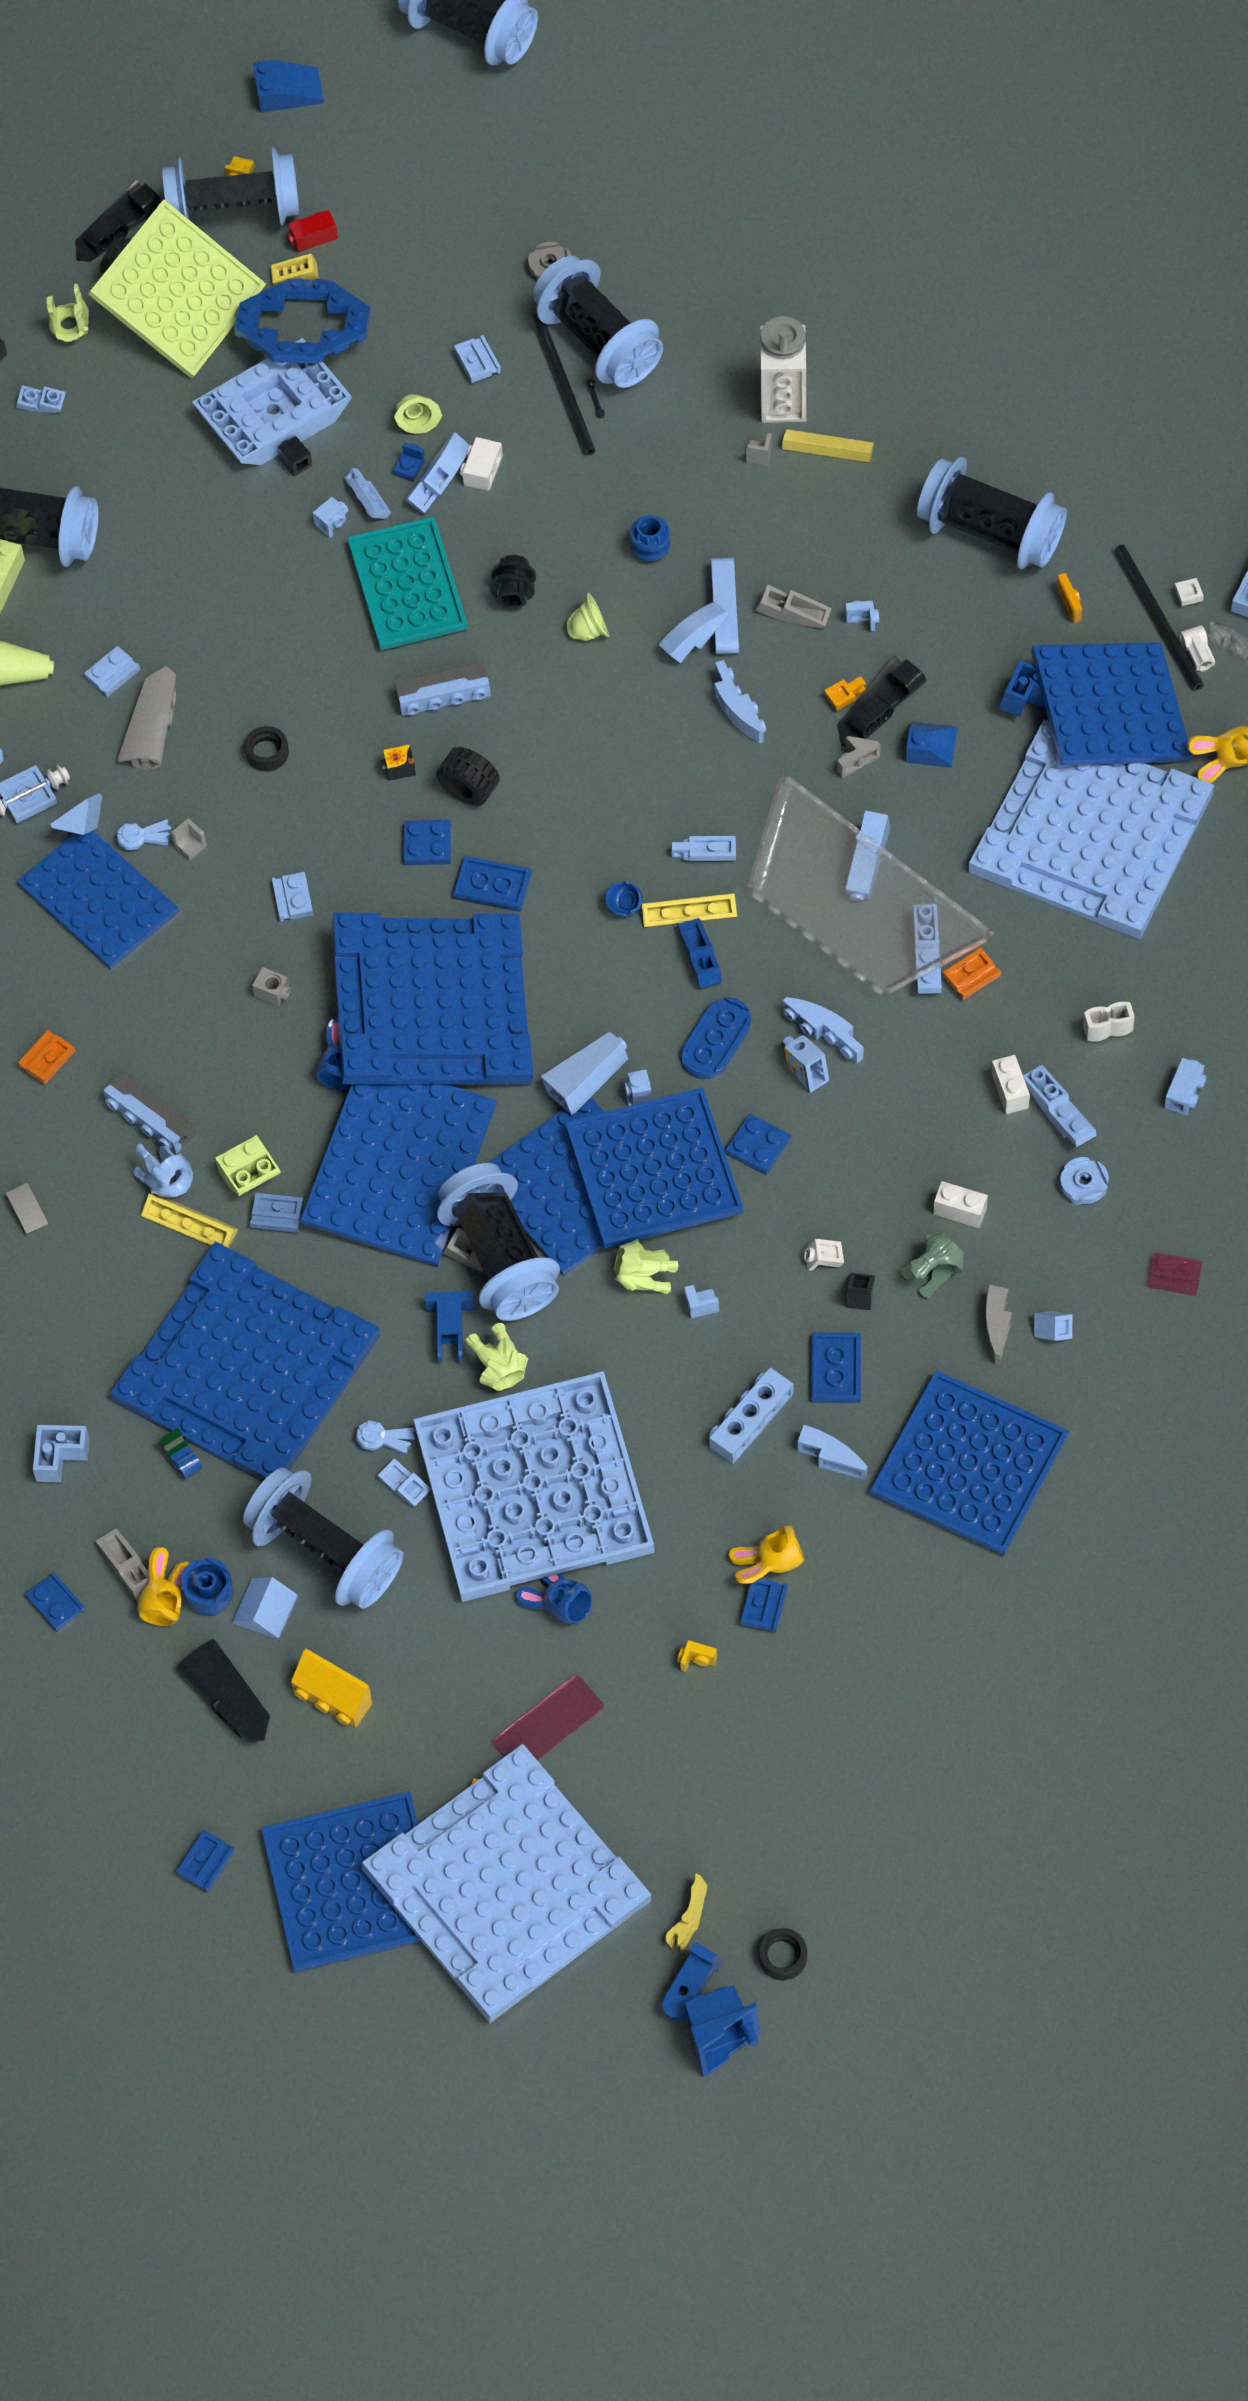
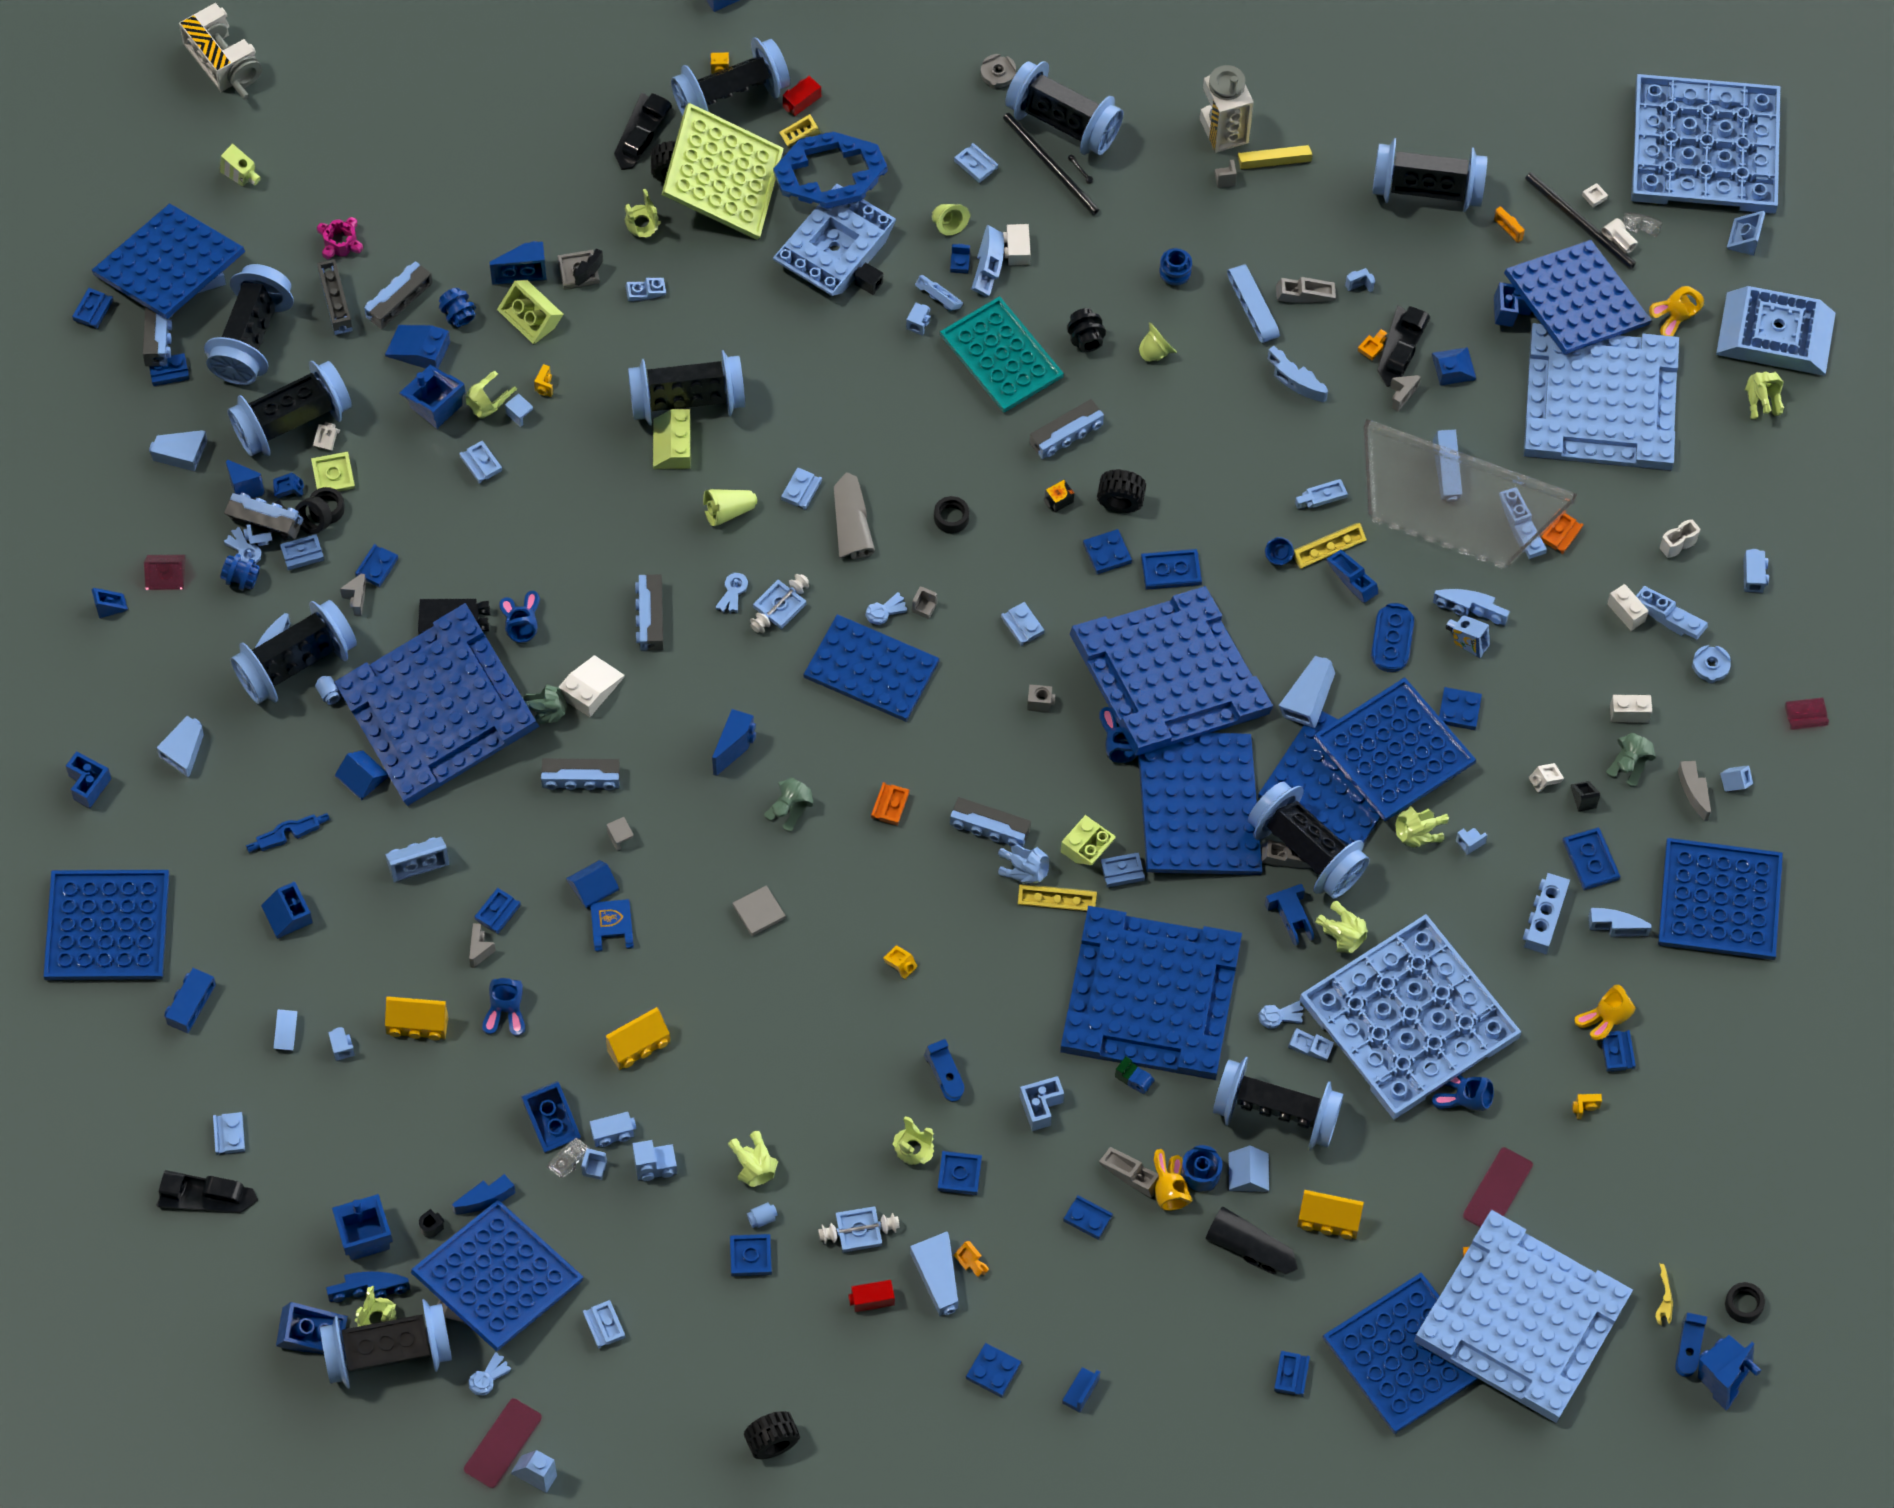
camera: 25 degrees left, 0 degrees up
(26, 1208) = (928, 924): light grey slope -> none
(82, 817) = (834, 609): light blue slope -> none
(637, 1087) = (1354, 693): light blue brick -> none
(693, 631) = (1241, 329): light blue slope -> none

